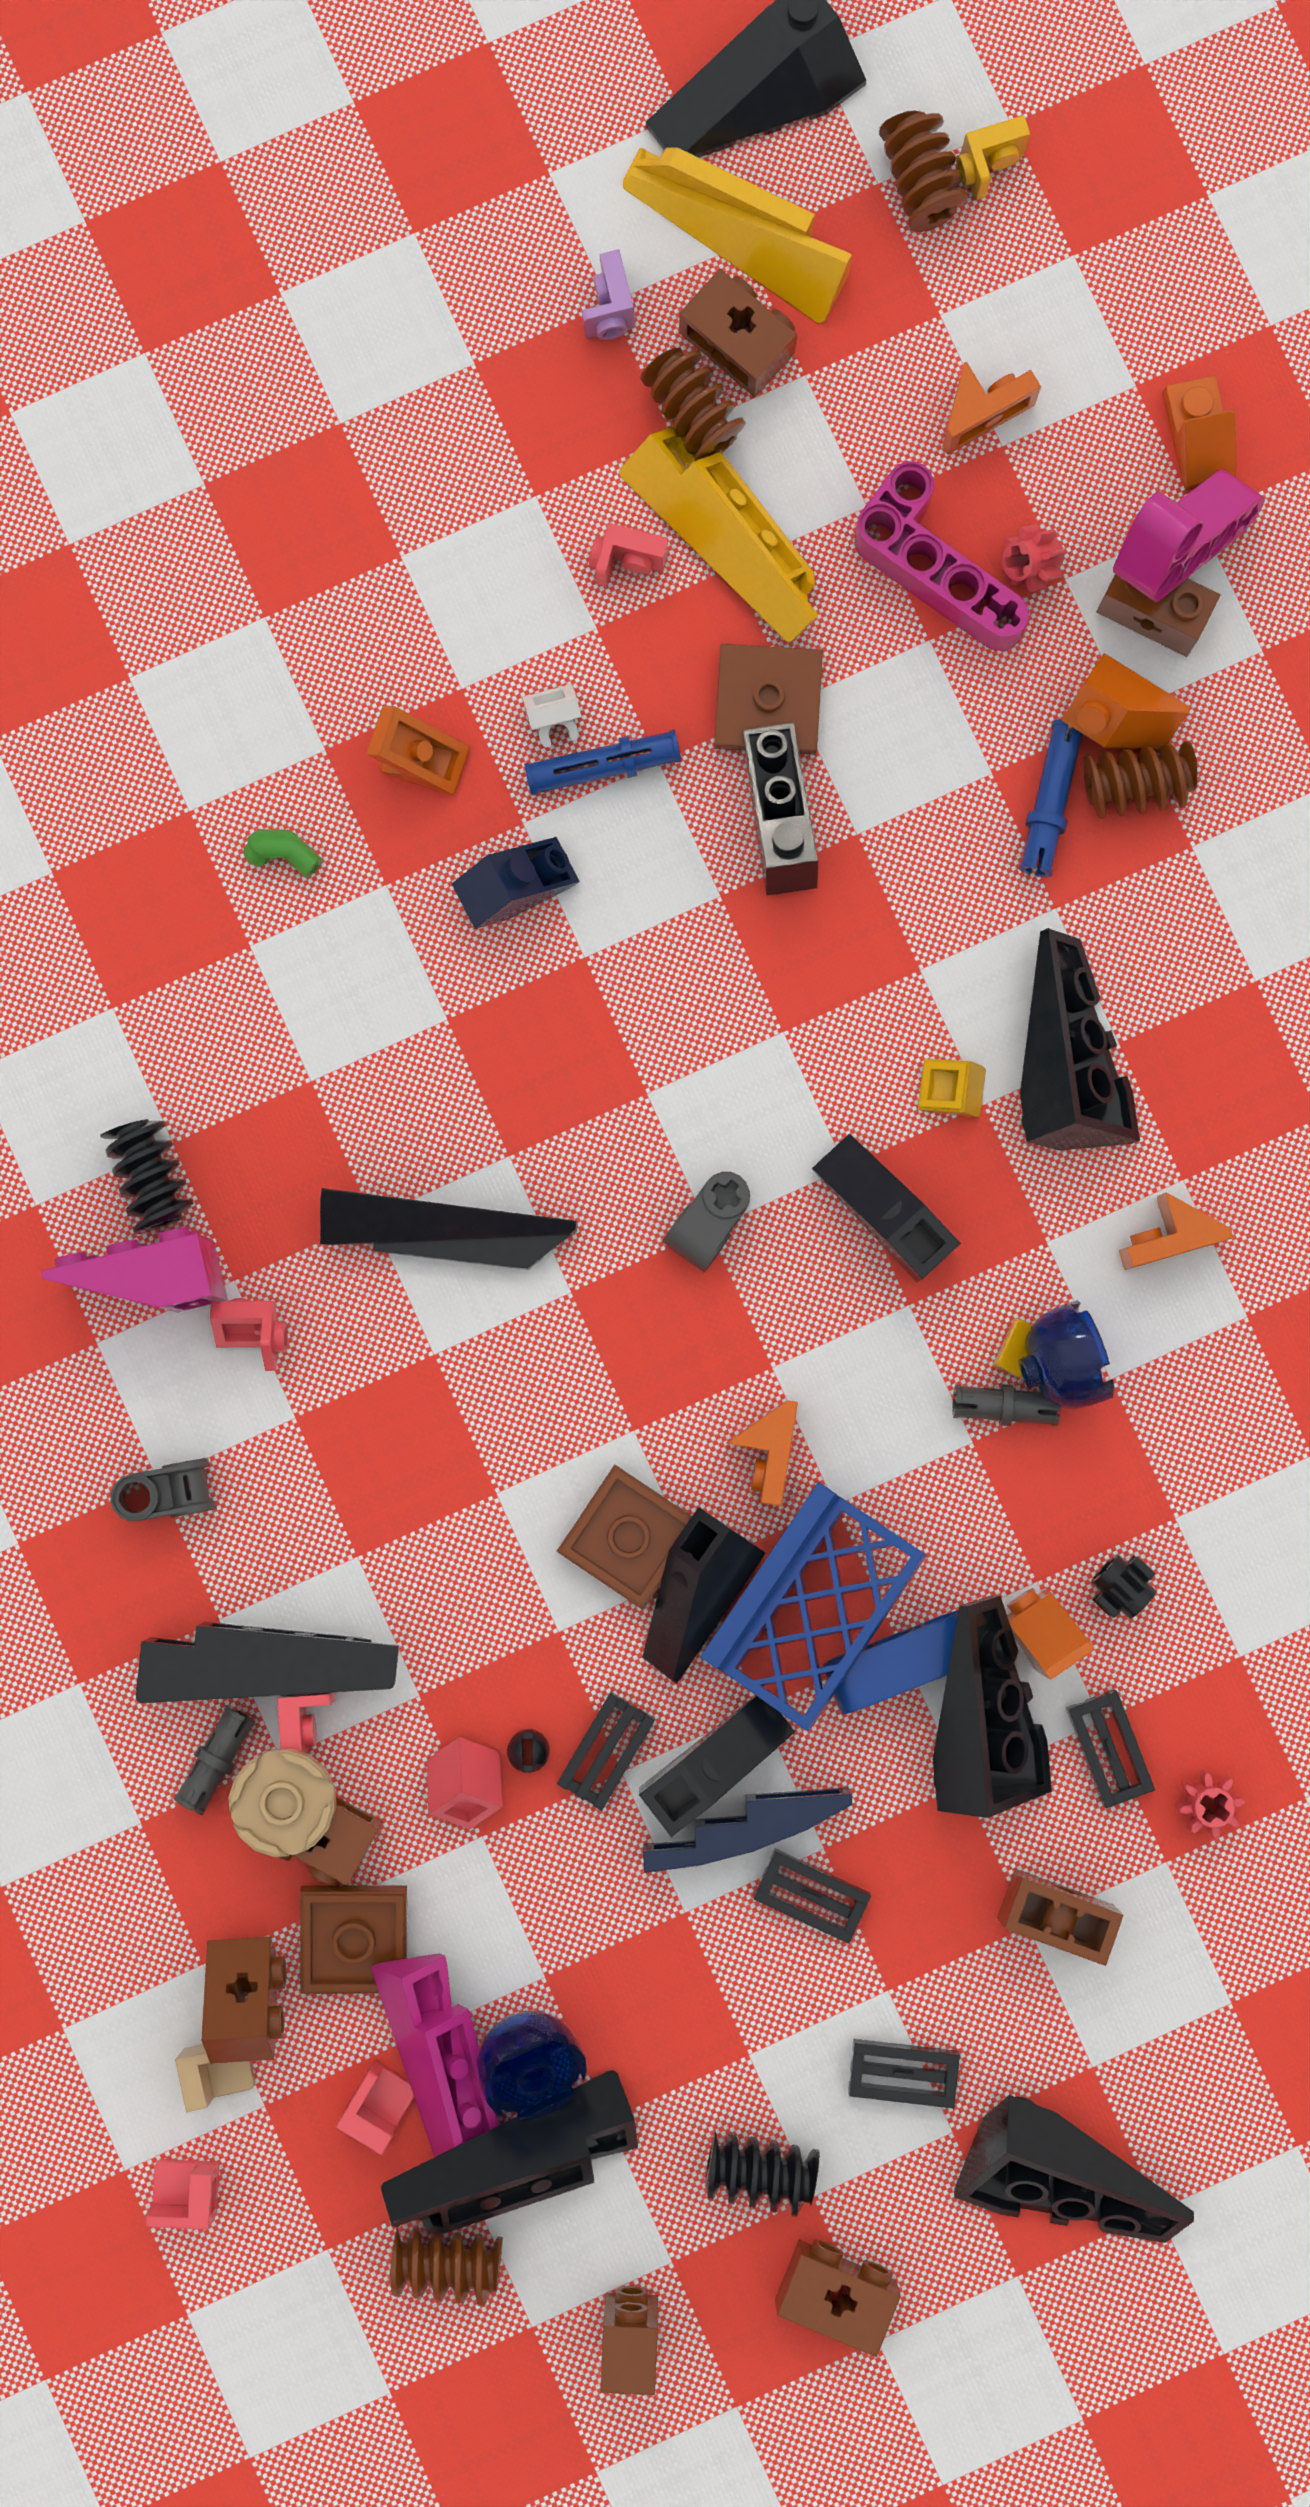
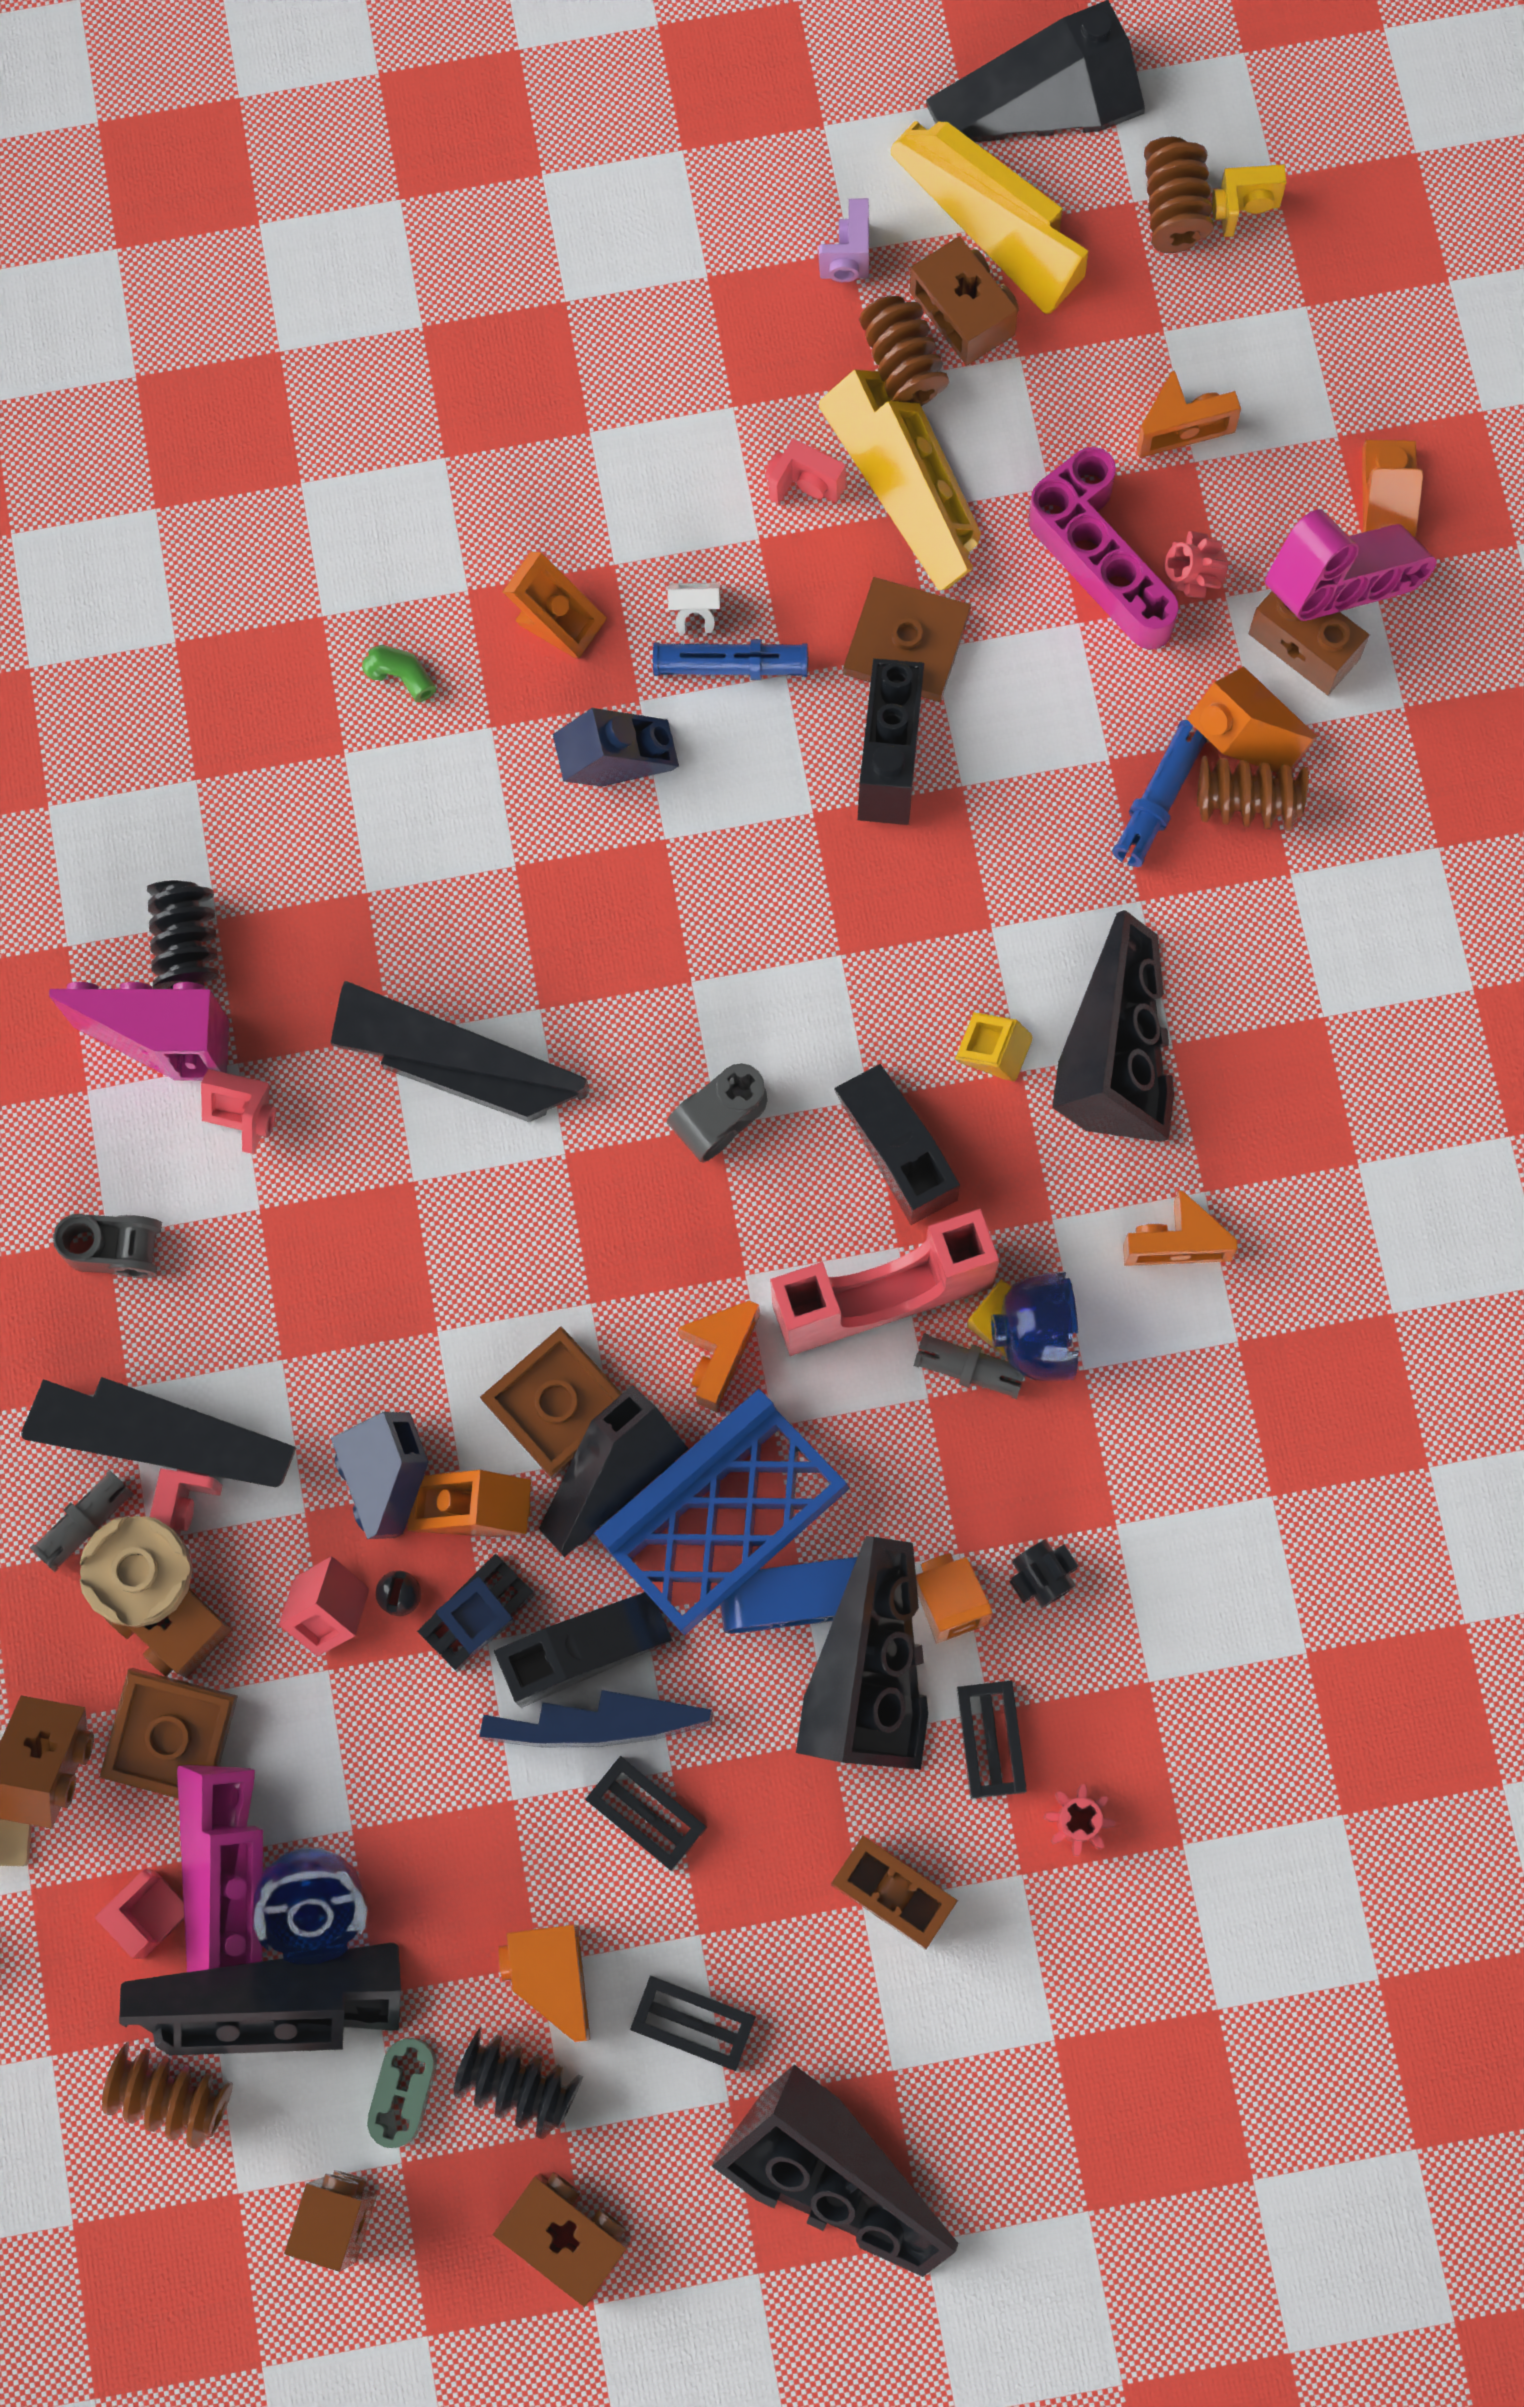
camera: 15 degrees right, 10 degrees down
(484, 1645) = (382, 1470): none -> slope
(574, 1655) = (472, 1504): none -> orange slope
(609, 1761) = (475, 1616): none -> dark blue plate
(644, 2204) = (389, 2088): none -> sand green beam
(763, 2068) = (549, 1976): none -> orange slope
(914, 1355) = (948, 1266): none -> coral arch

